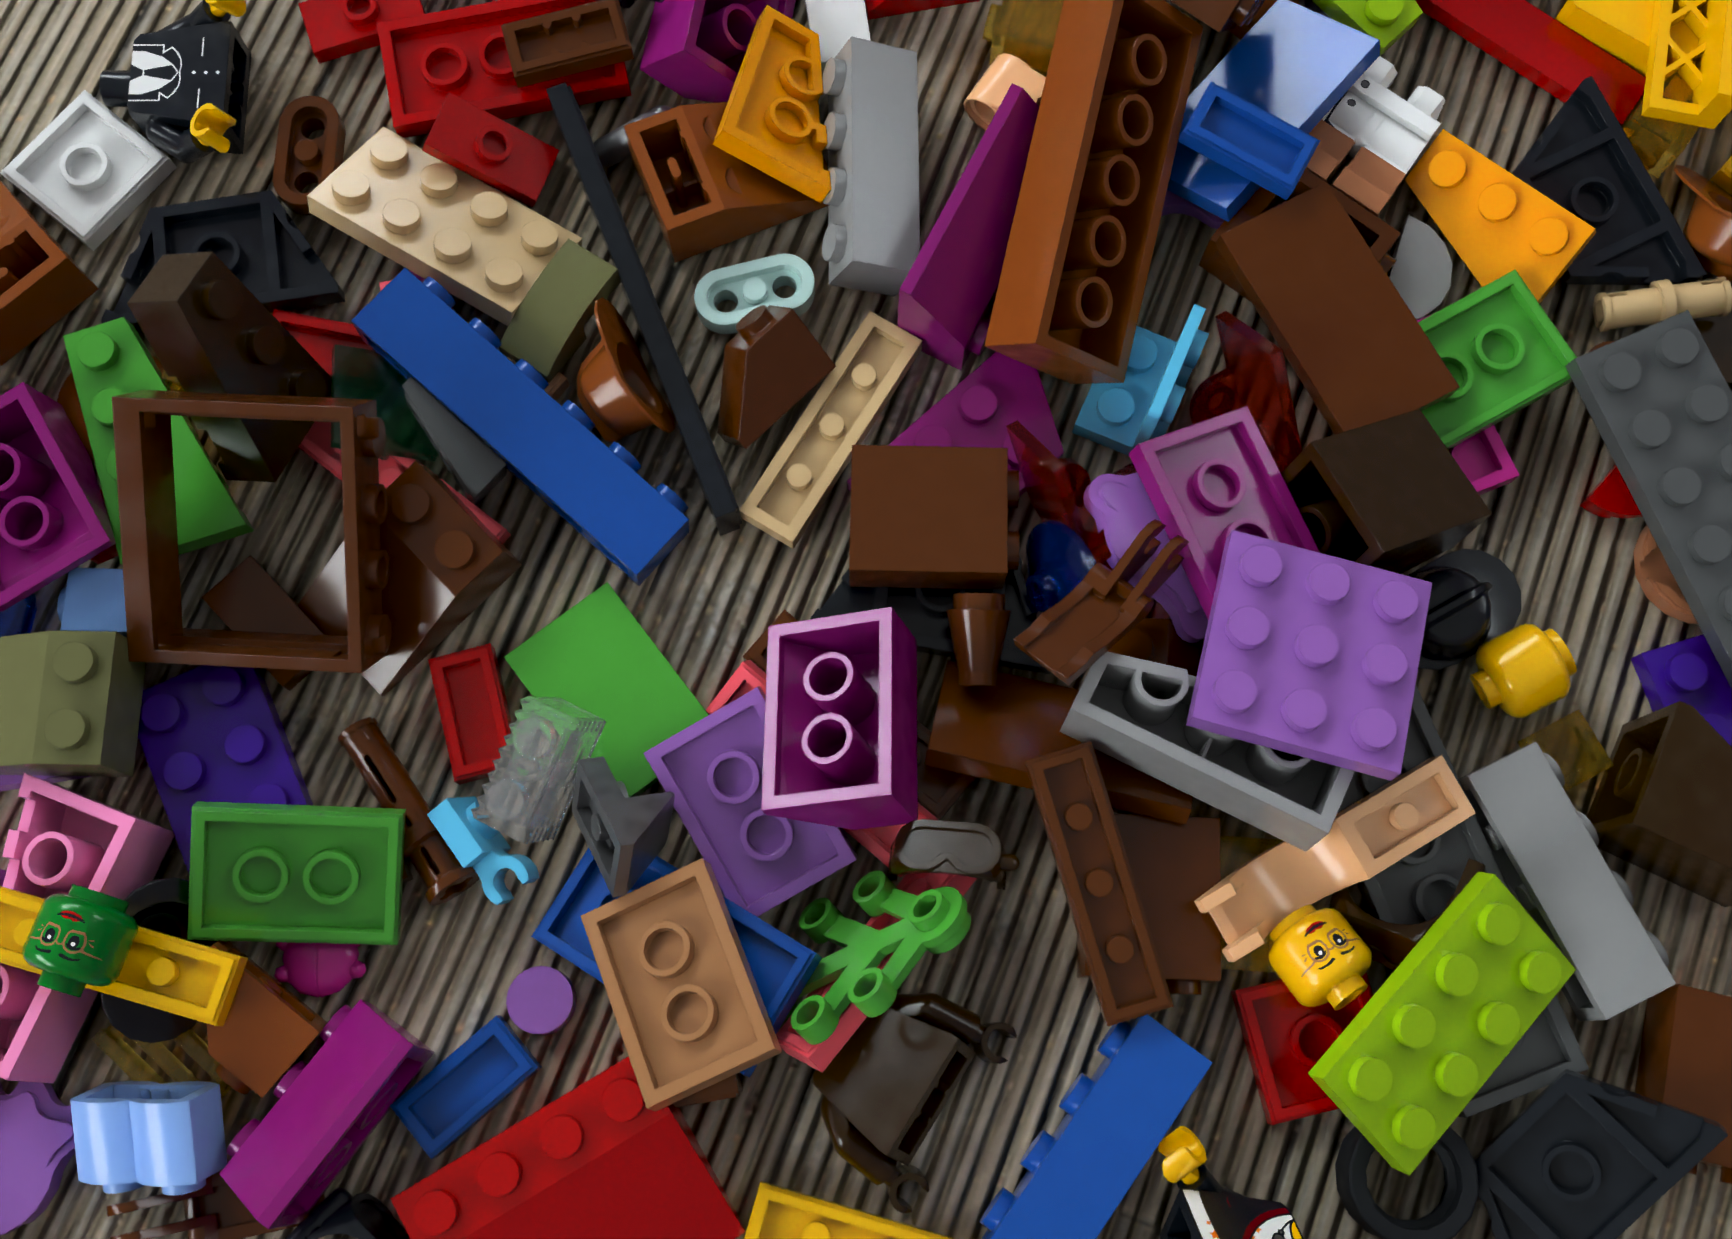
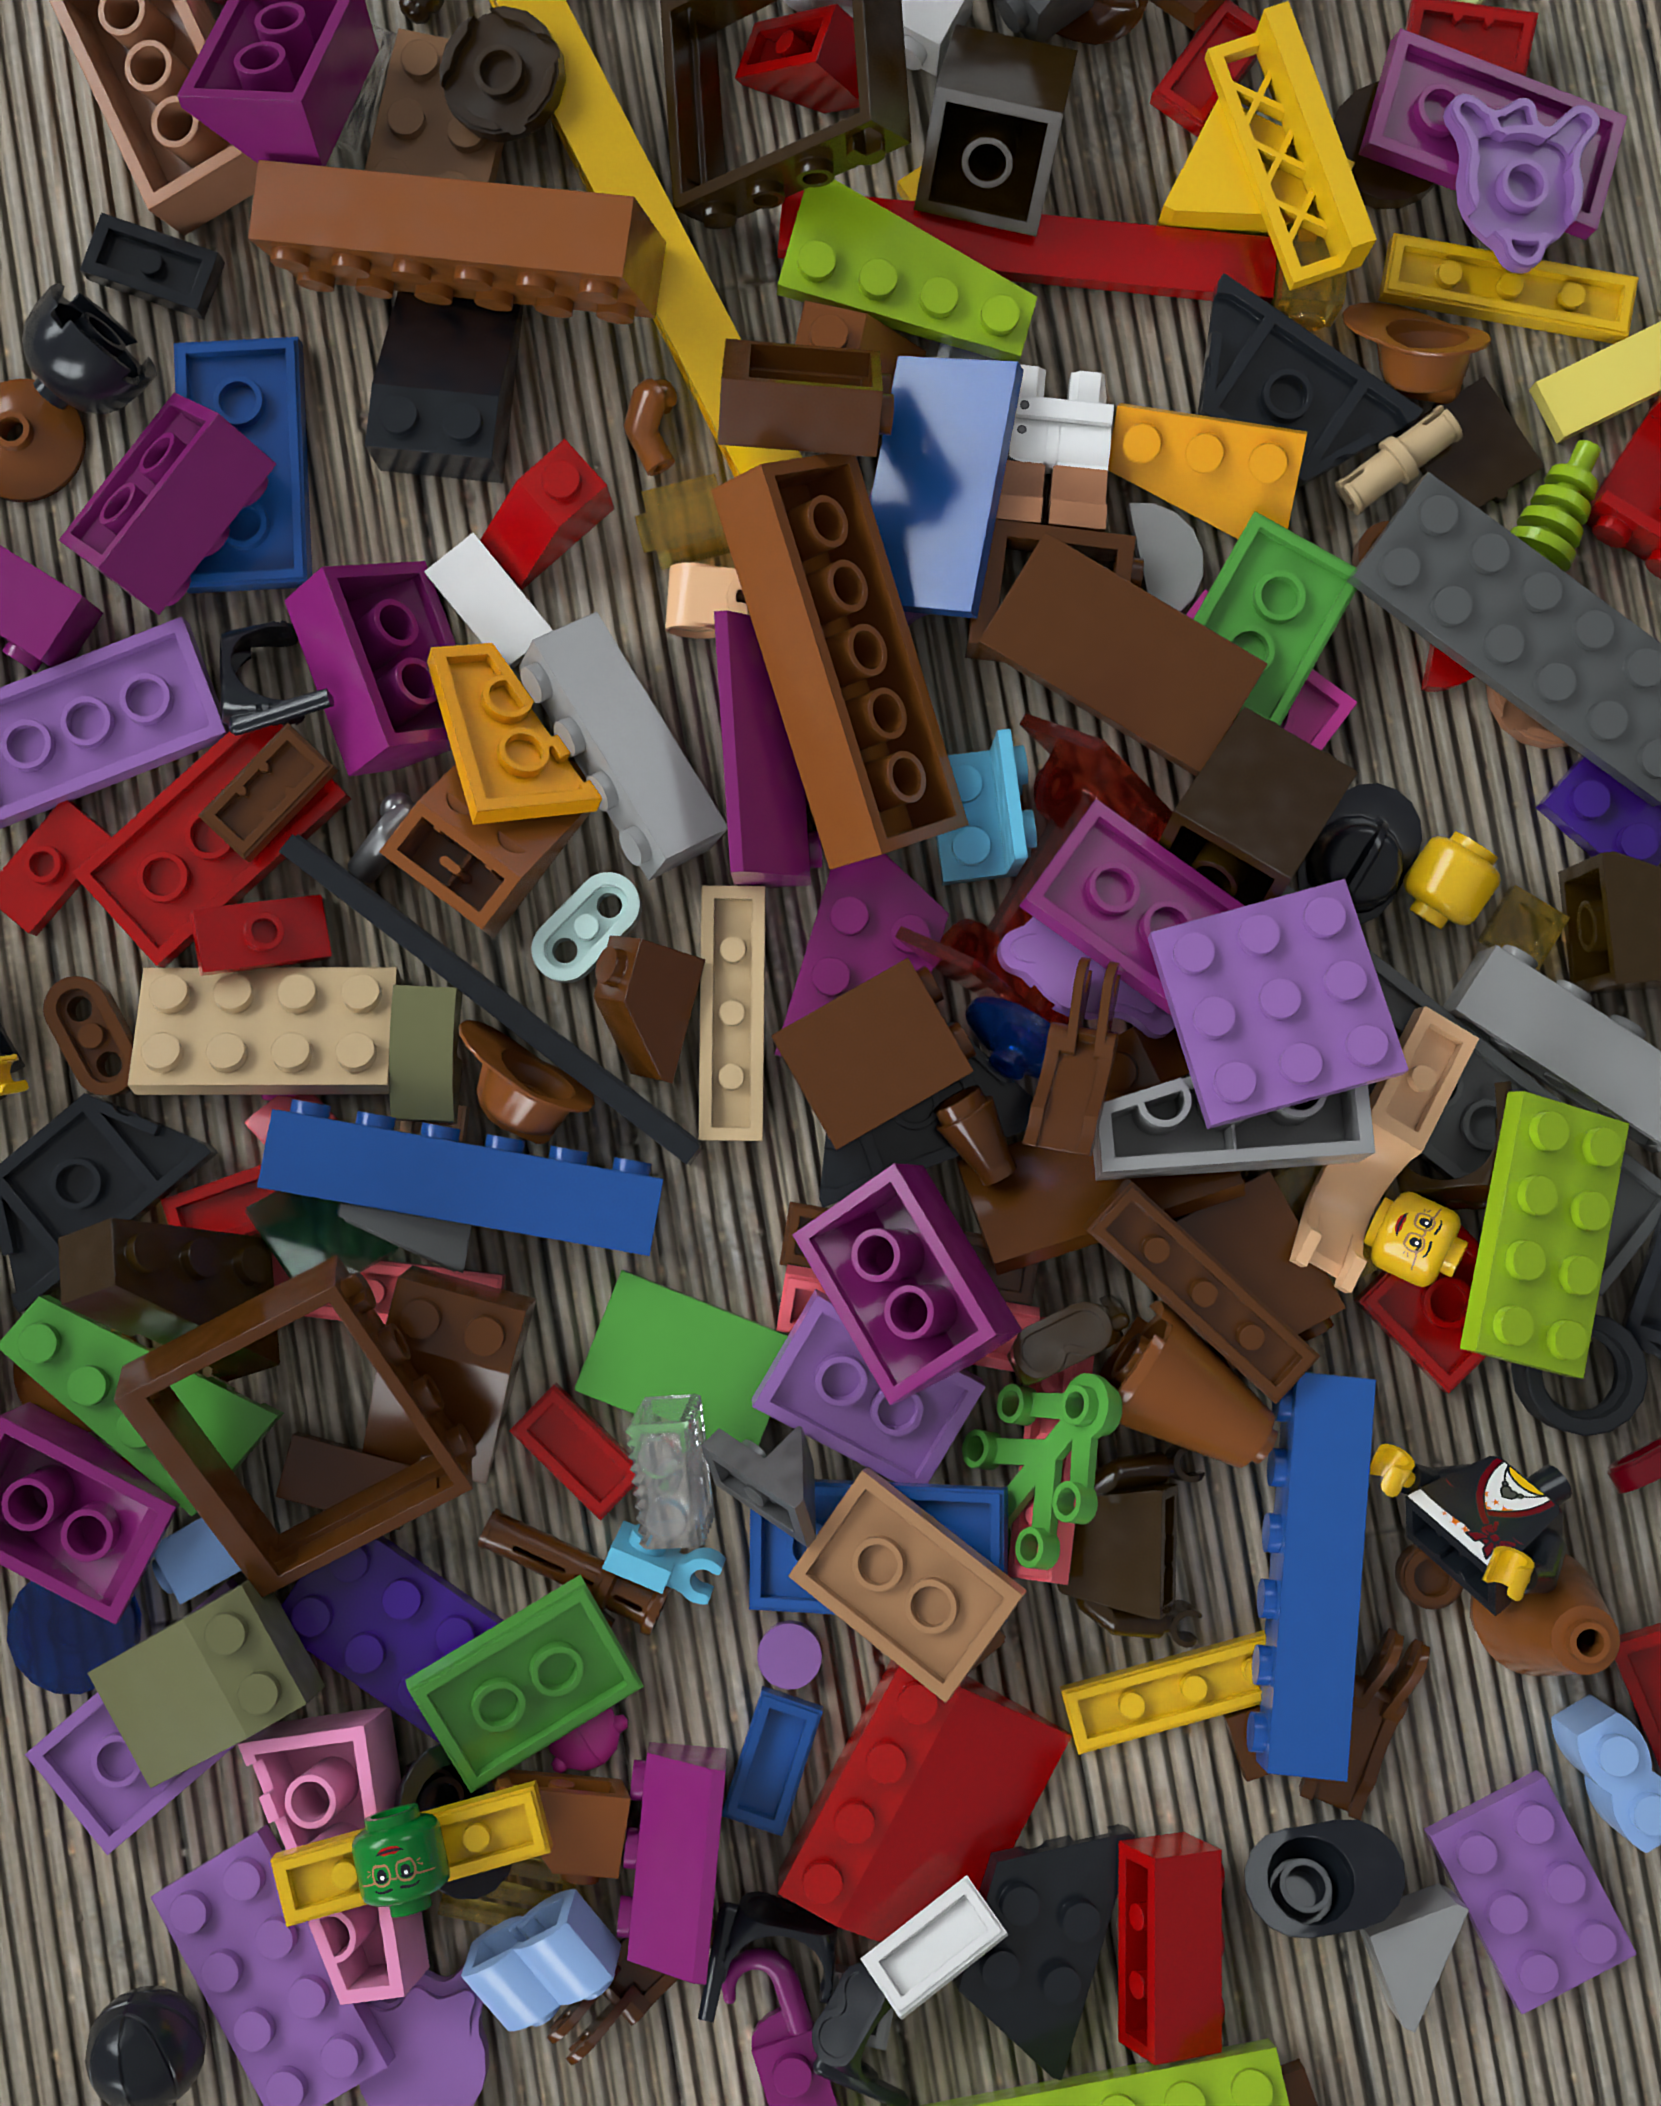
camera: 30 degrees left, 10 degrees up
(1032, 975) = (1186, 1392): none -> dark orange cone
(1249, 140) = (956, 537): blue tile -> none

